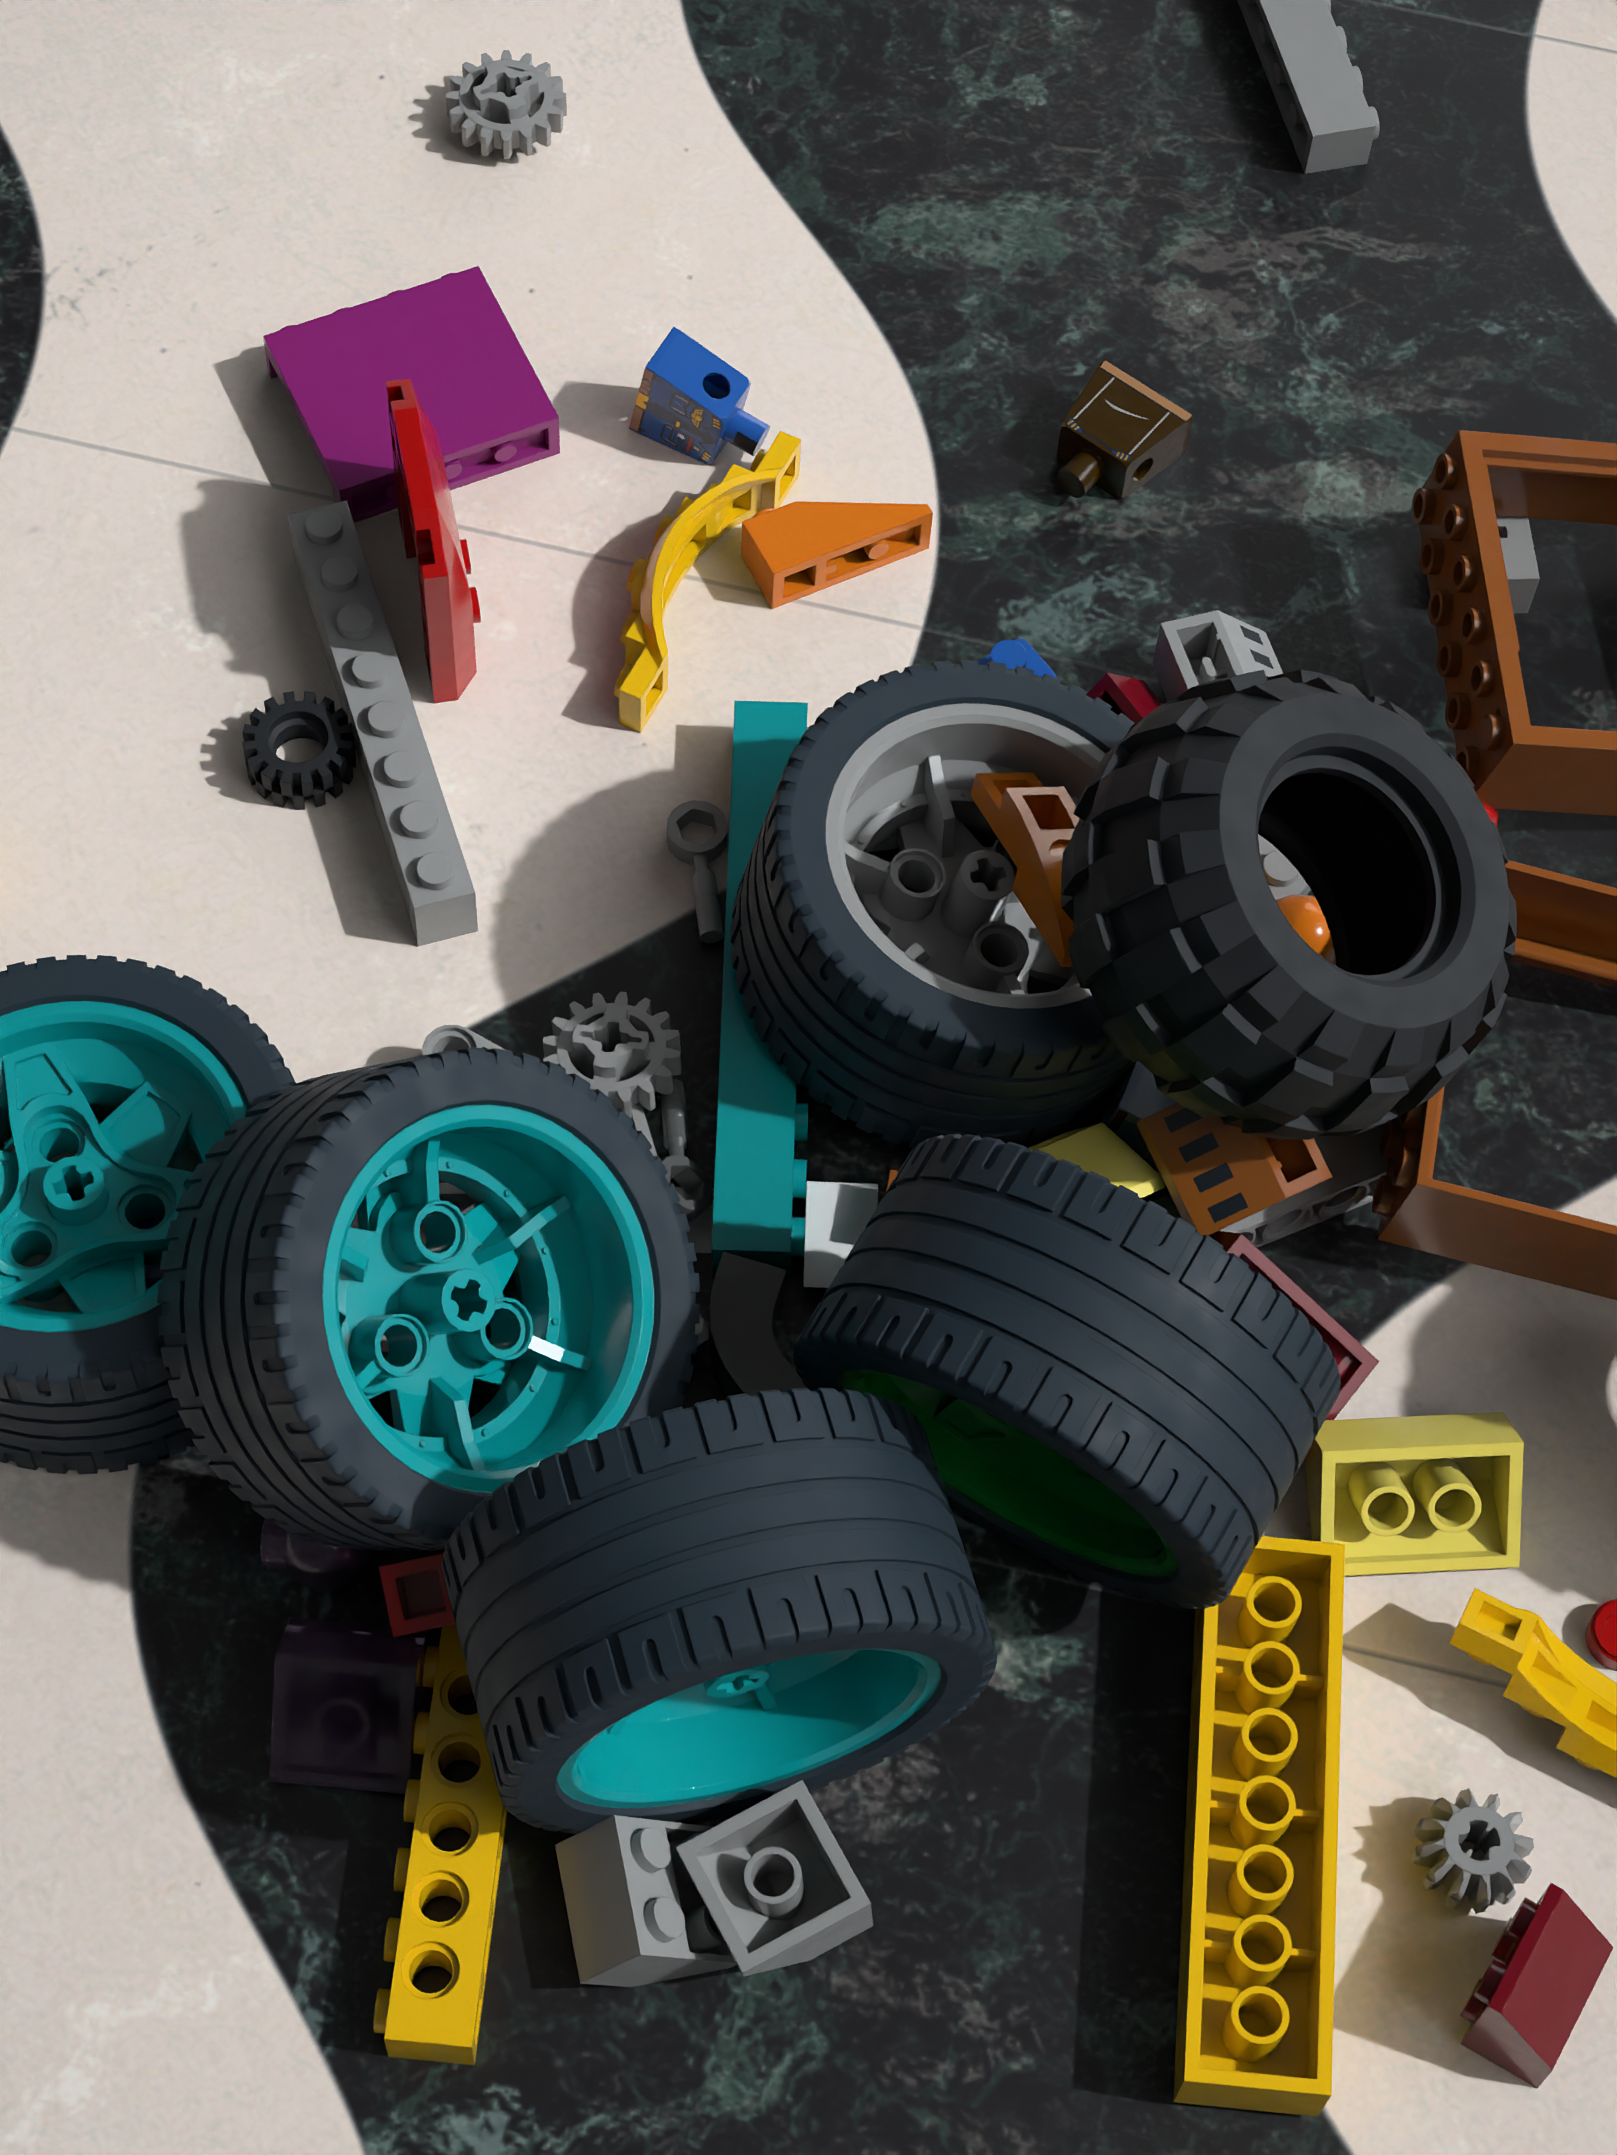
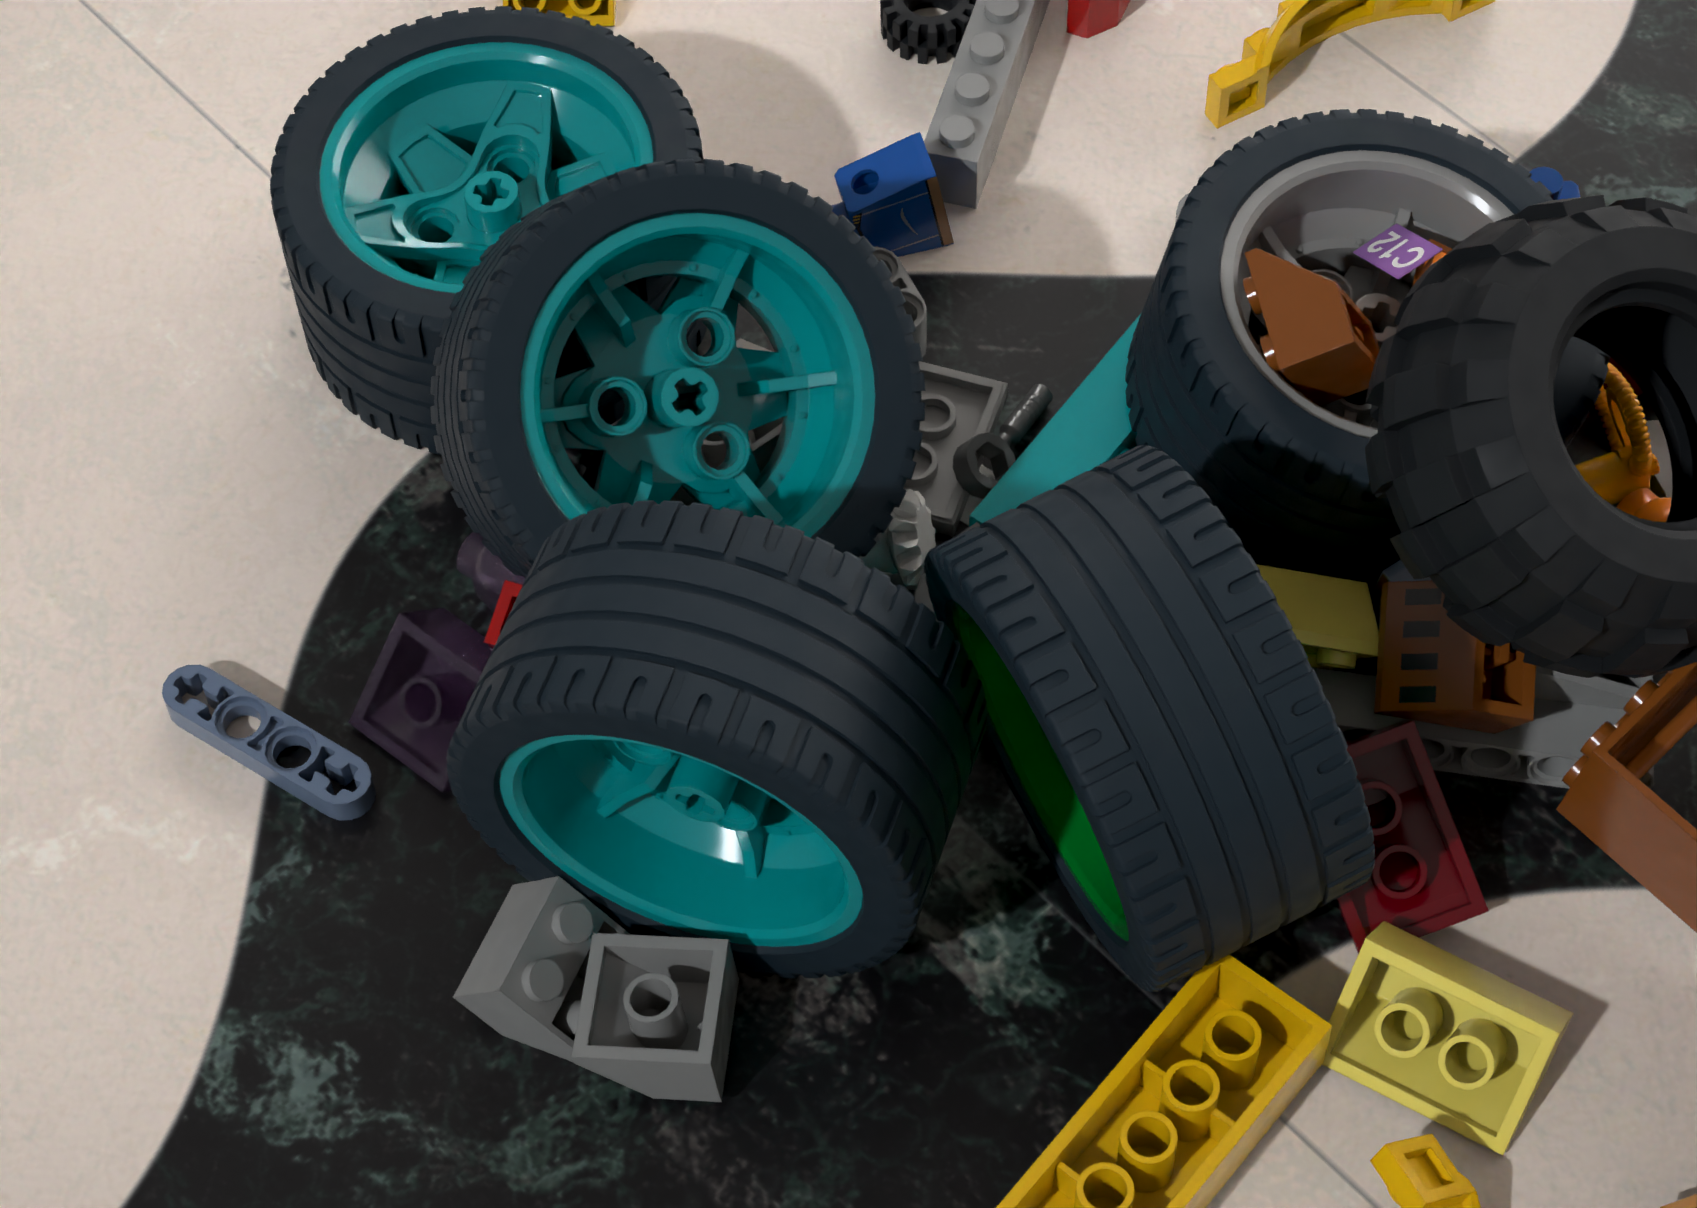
camera: 40 degrees right, 5 degrees down
(208, 1858) = (262, 748): none -> sand blue beam
(412, 976) = (895, 198): none -> blue torso
(446, 2022) = (346, 967): yellow brick -> none
(618, 1050) = (1005, 341): light grey gear -> none
(826, 543) = (1474, 54): orange slope -> none
(959, 919) = (1313, 329): none -> dark orange slope
(966, 804) = (1397, 251): none -> medium lavender sticker

